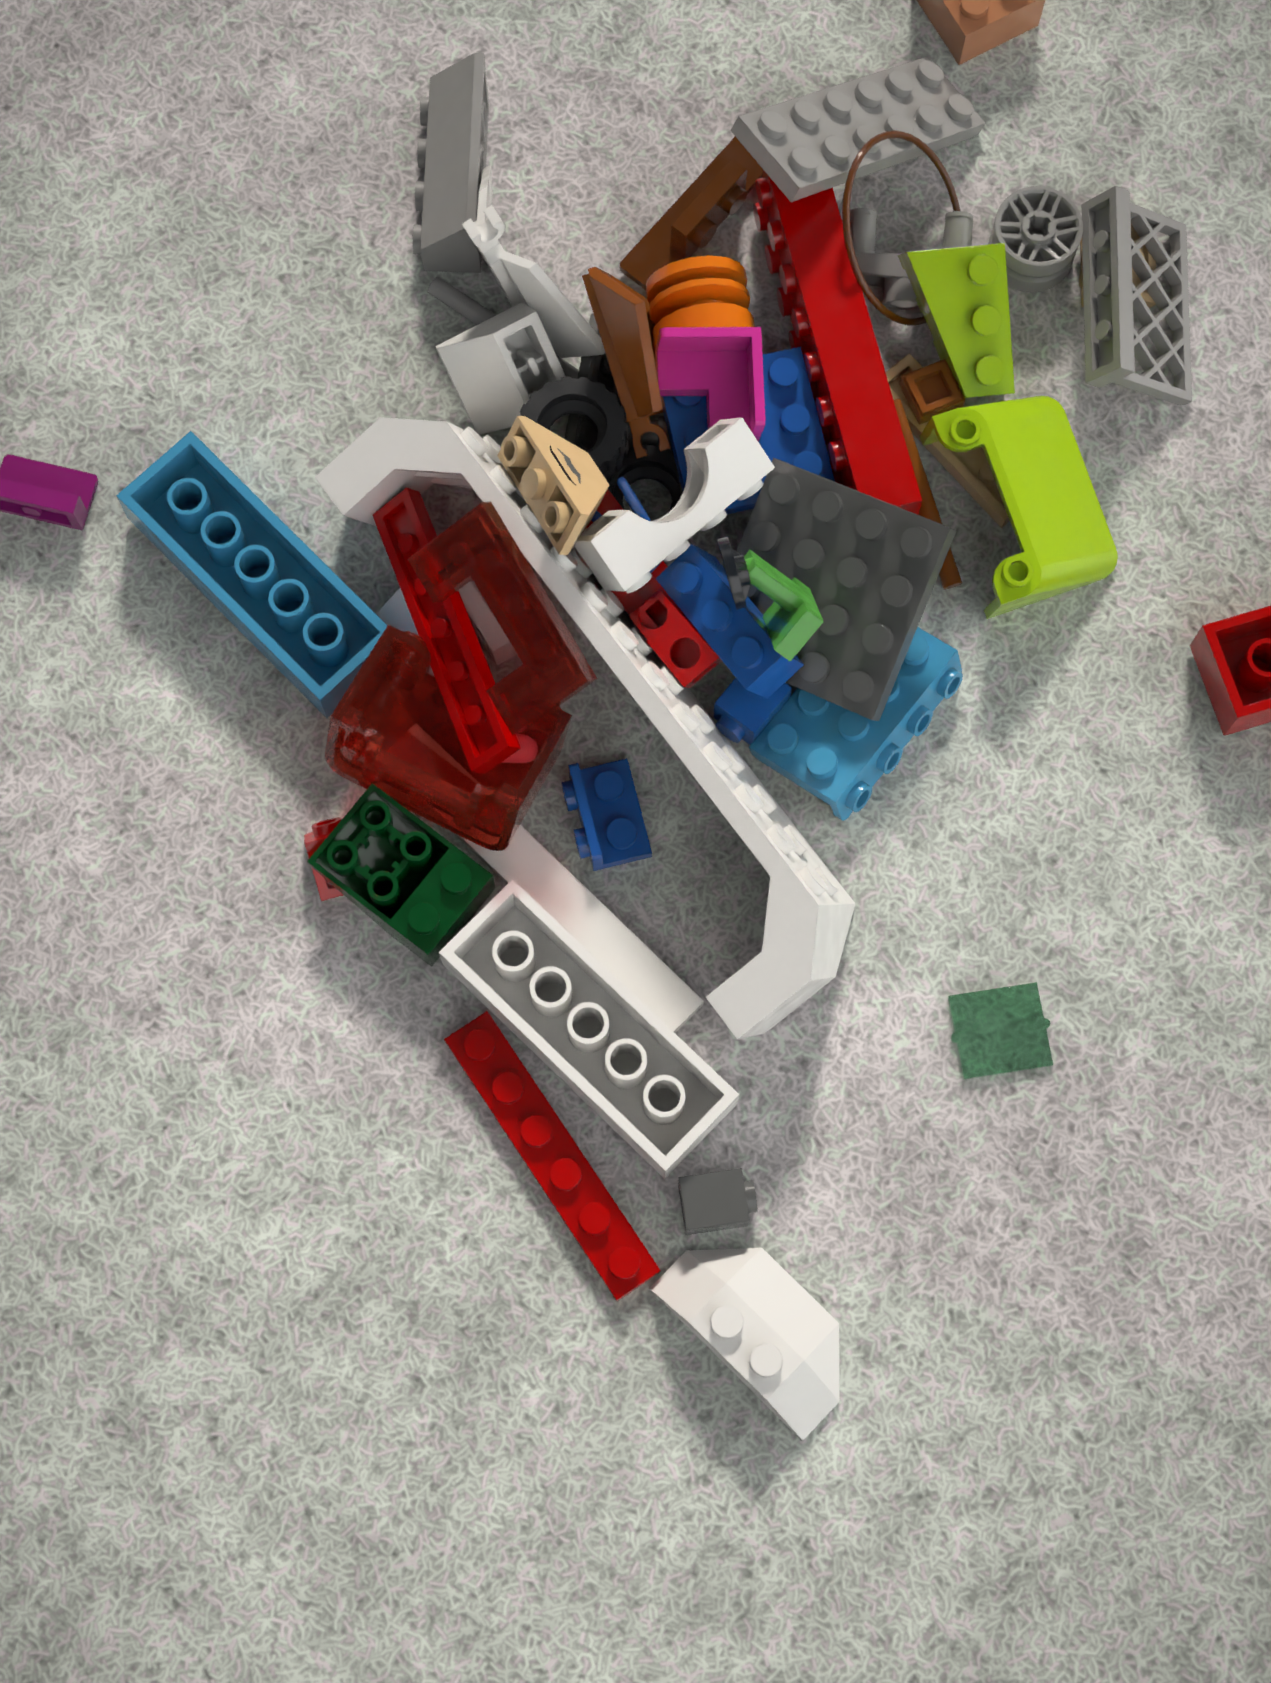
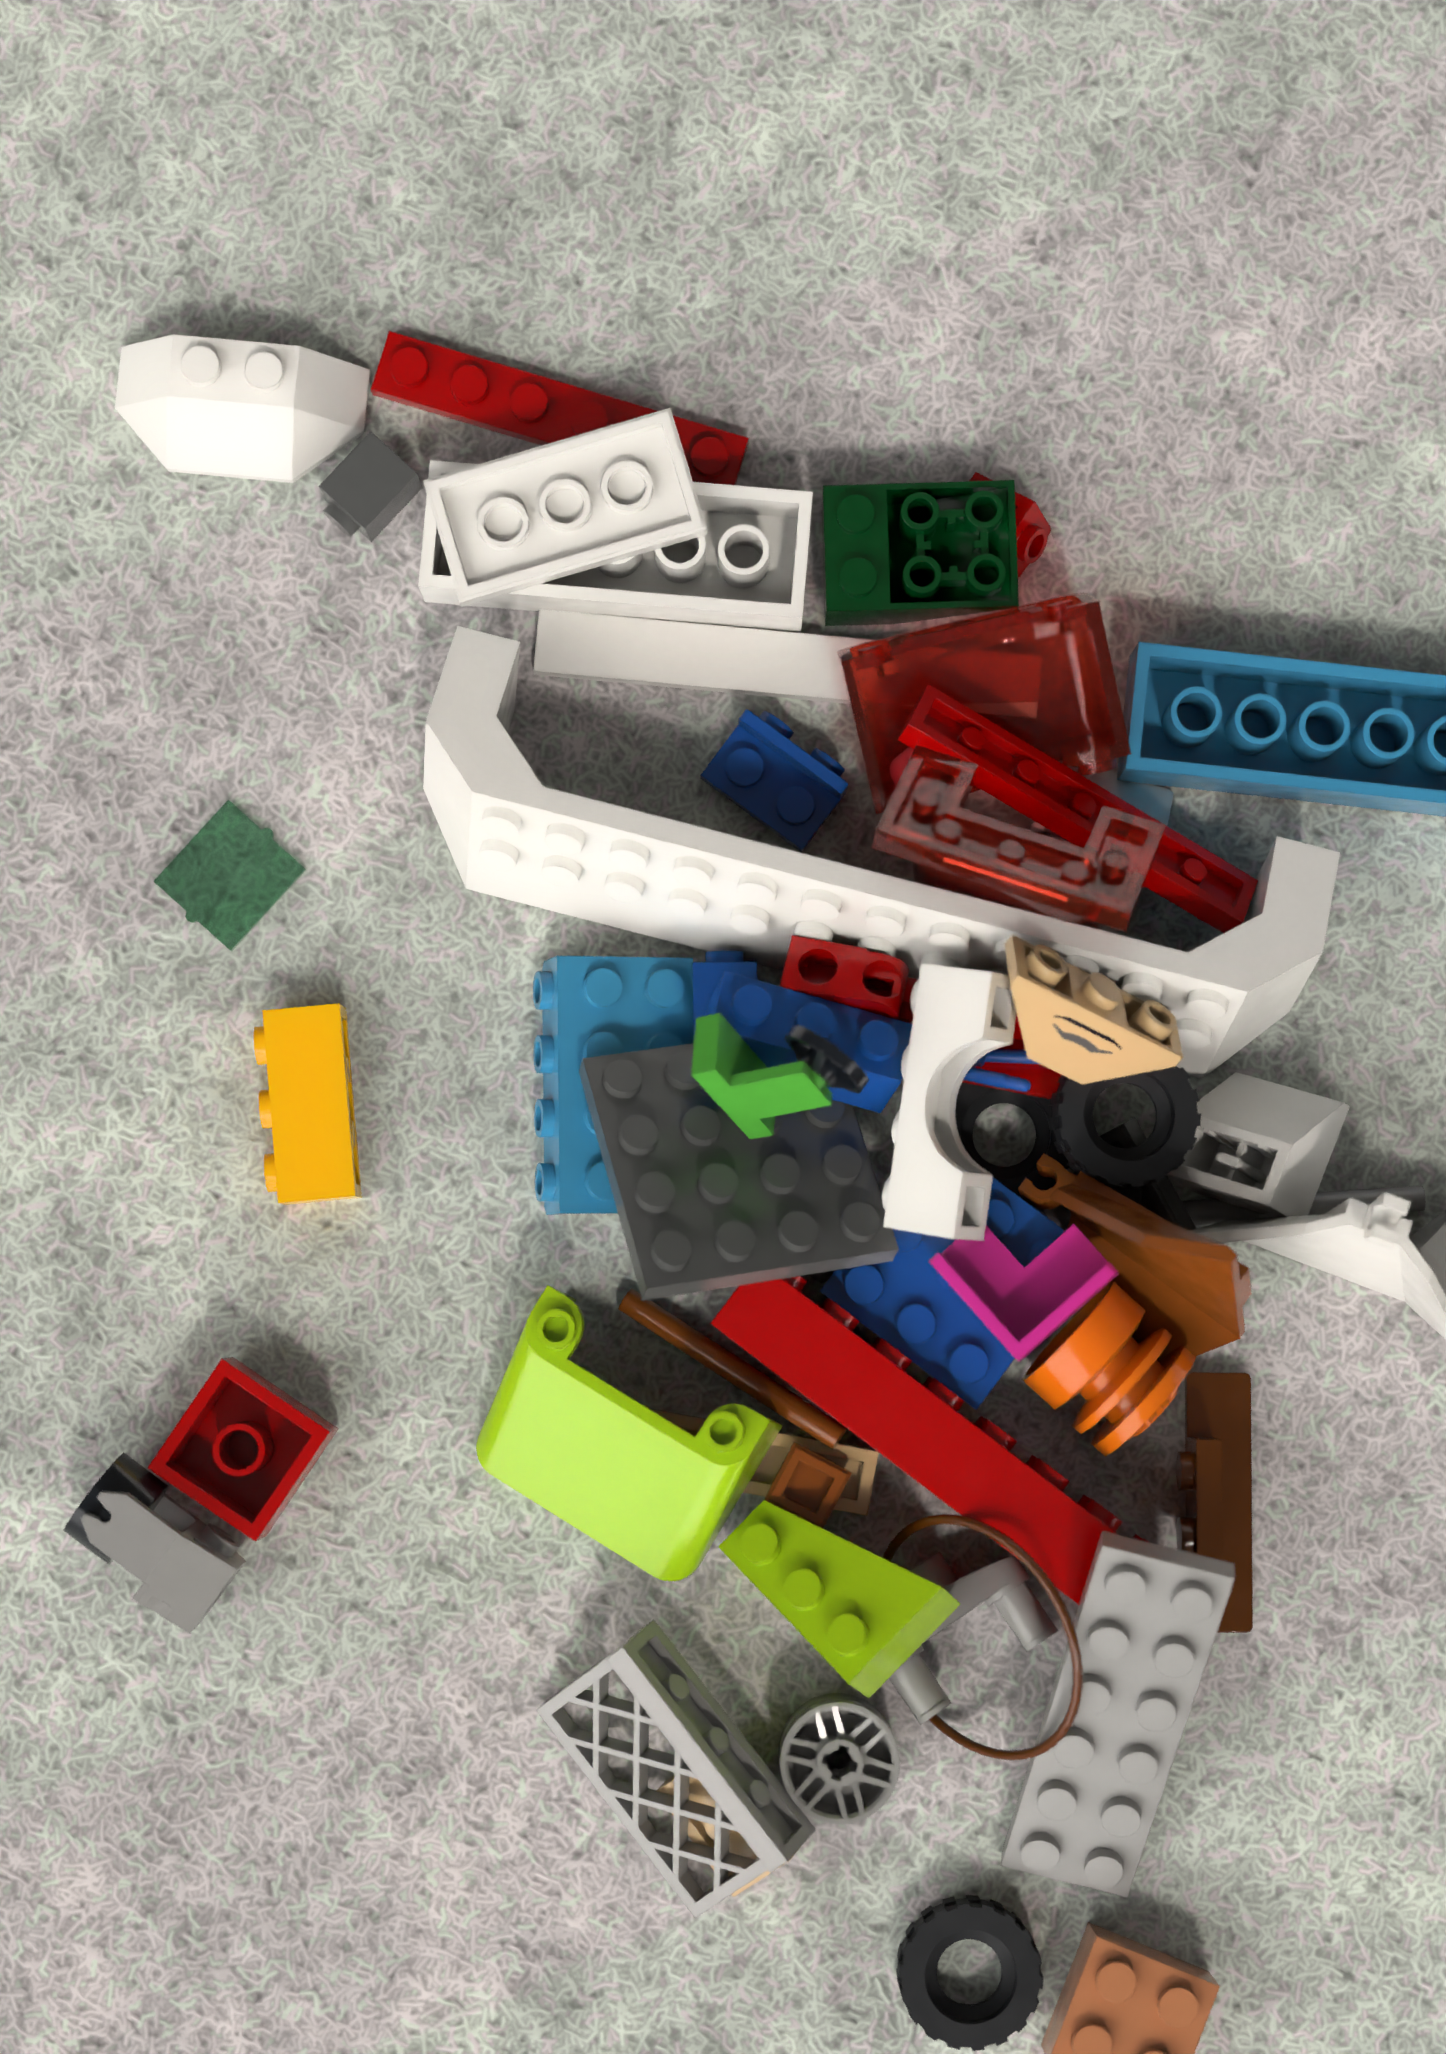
camera: 140 degrees right, 10 degrees up
(604, 1065) = (565, 507): none -> white tile
(1057, 49) = (981, 2022): none -> black tyre
(1061, 842) = (308, 1104): none -> yellow brick

